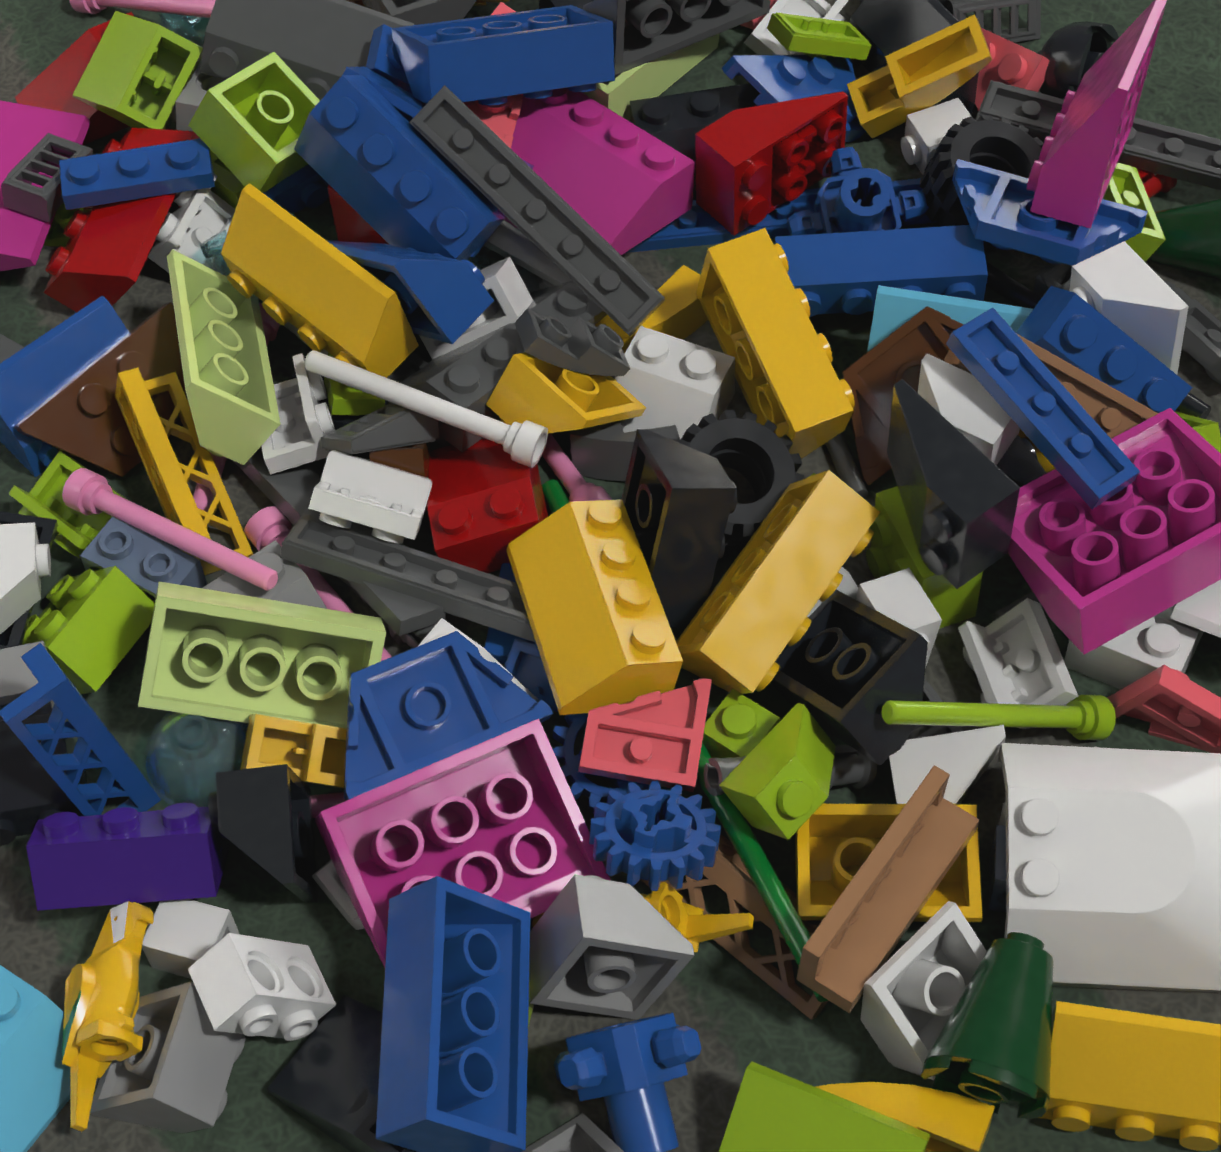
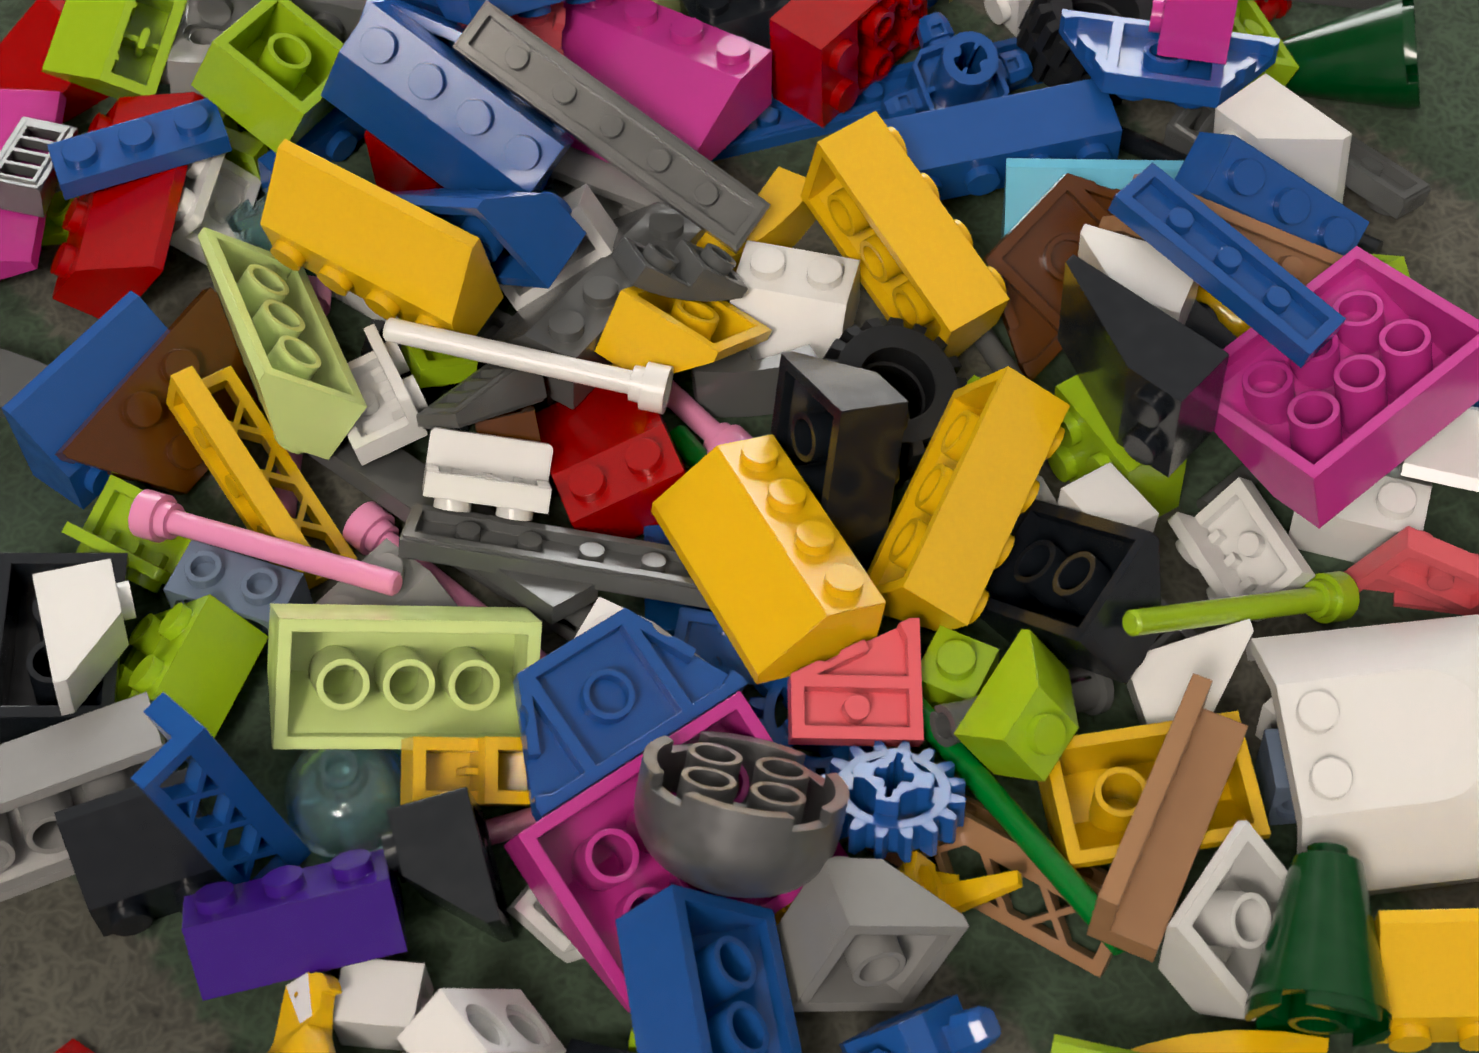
camera: 10 degrees left, 0 degrees up
(507, 854) = (729, 847): none -> flat silver cylinder

